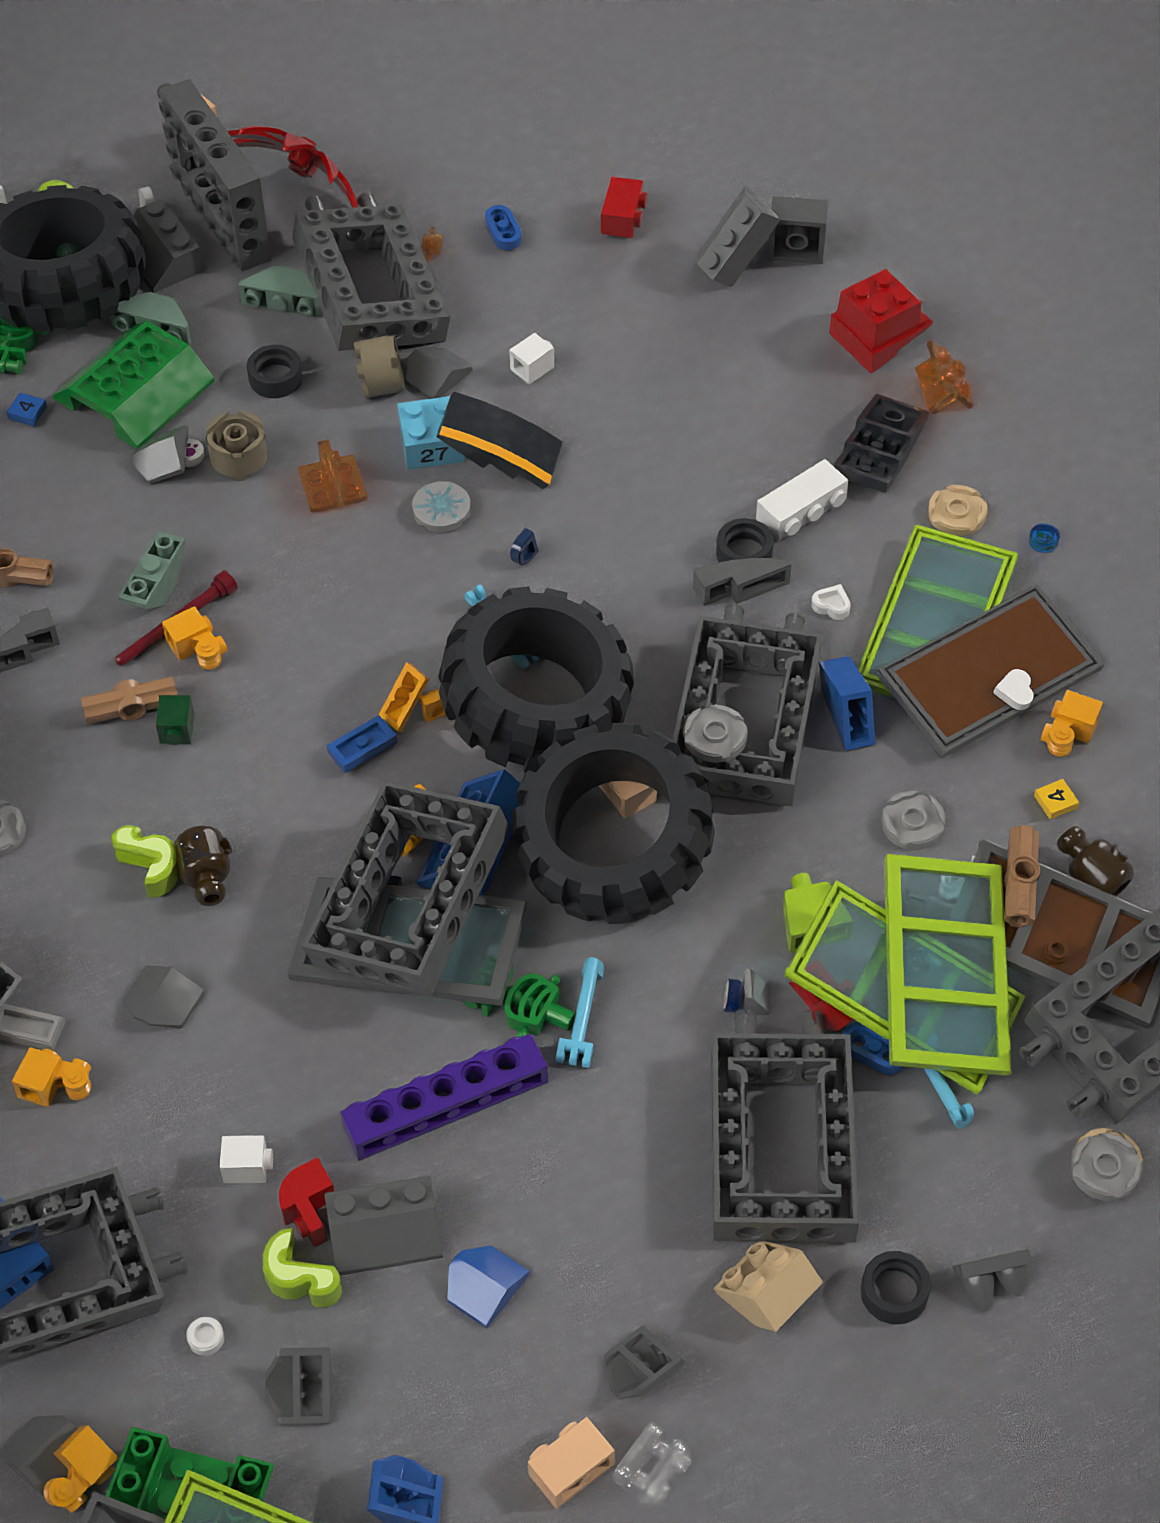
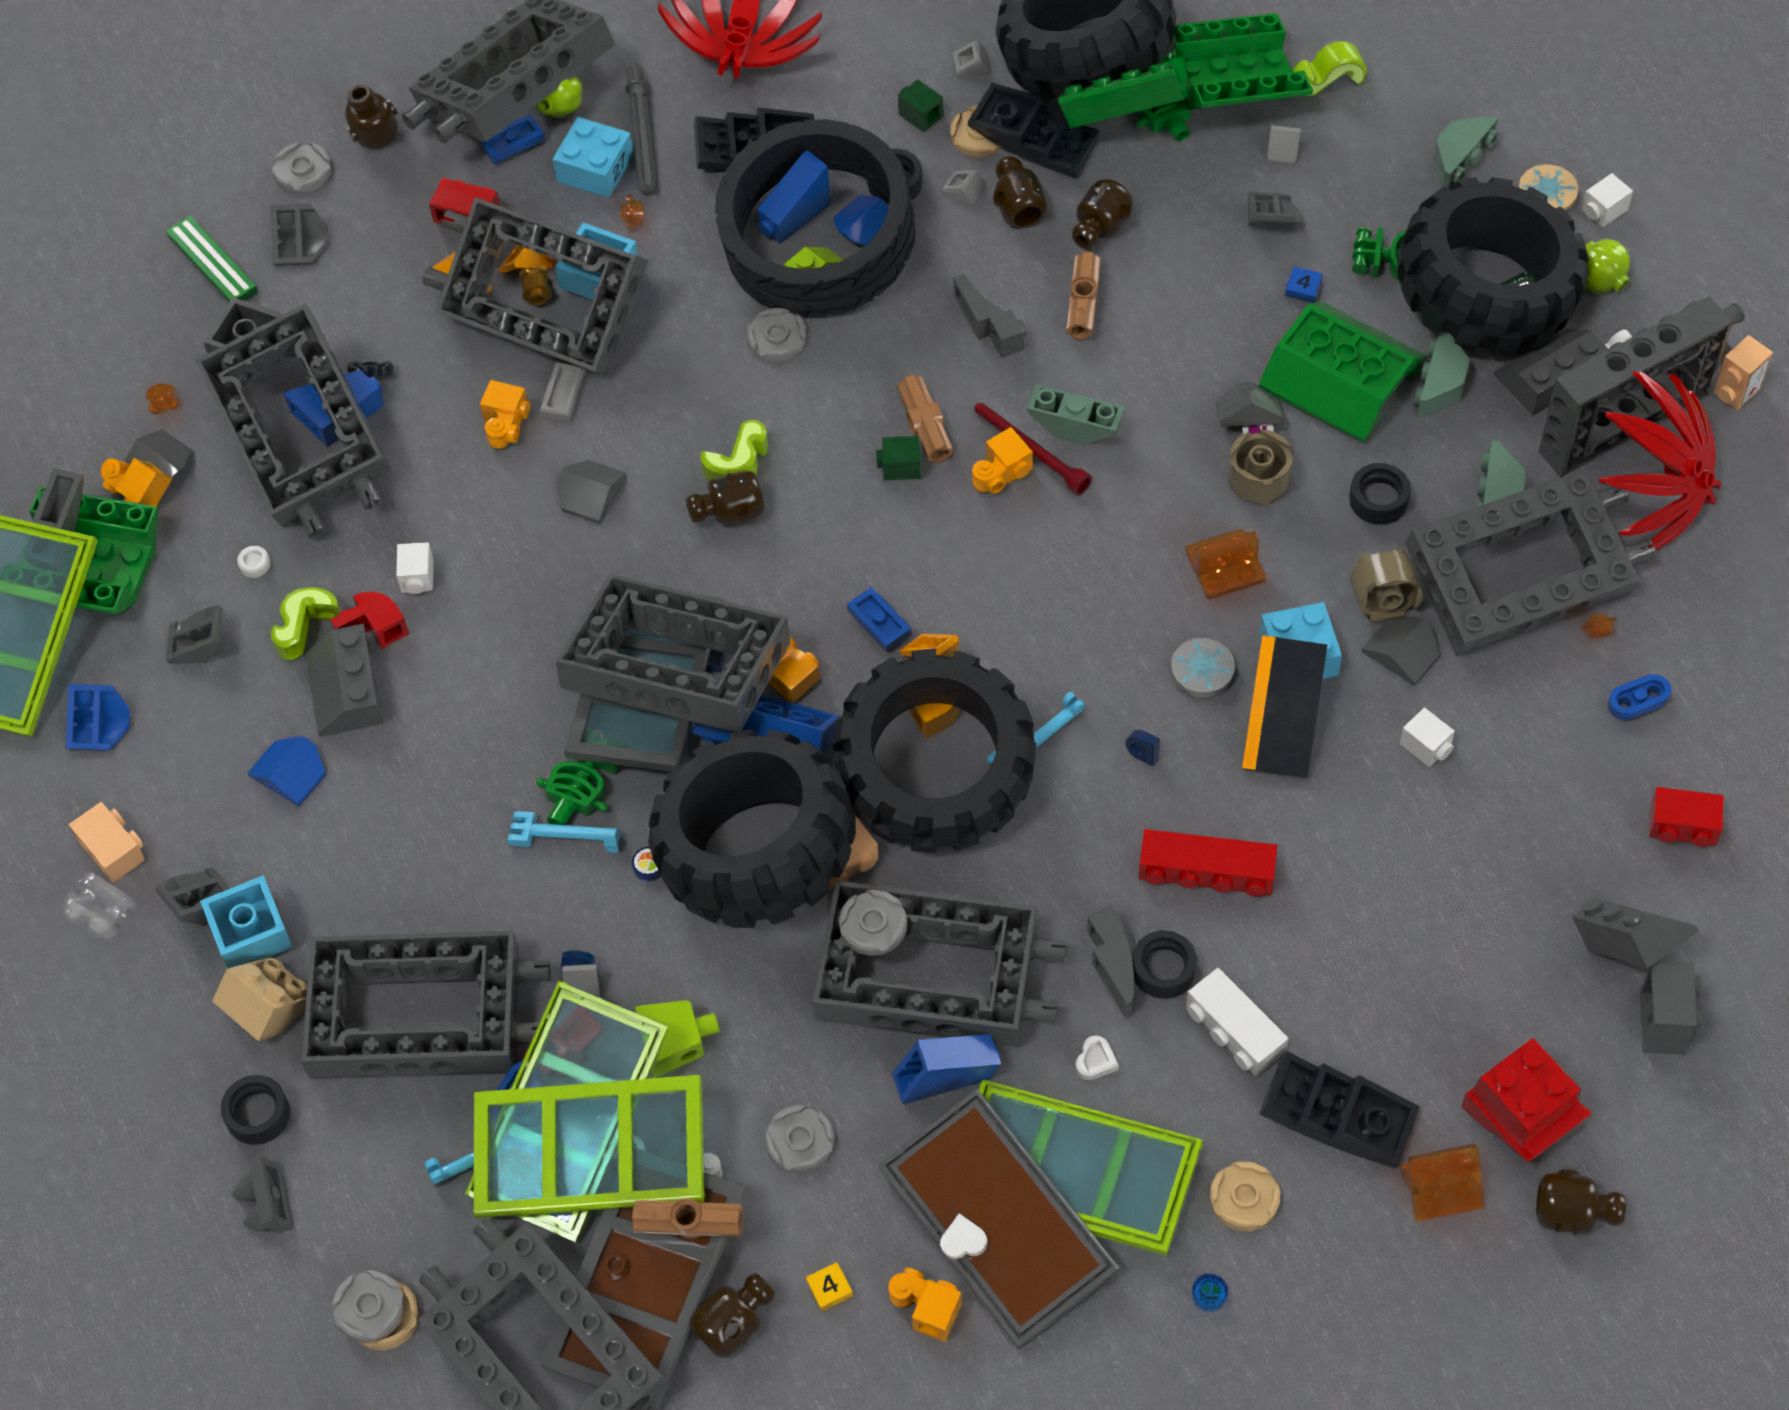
camera: 90 degrees right, 5 degrees up
(436, 1111) = (501, 786): dark purple brick -> none
(621, 940) = (644, 865): none -> tile
(646, 510) = (1207, 862): none -> red brick
(686, 1300) = (246, 923): none -> medium azure brick
(963, 304) = (1574, 1203): none -> dark brown piece

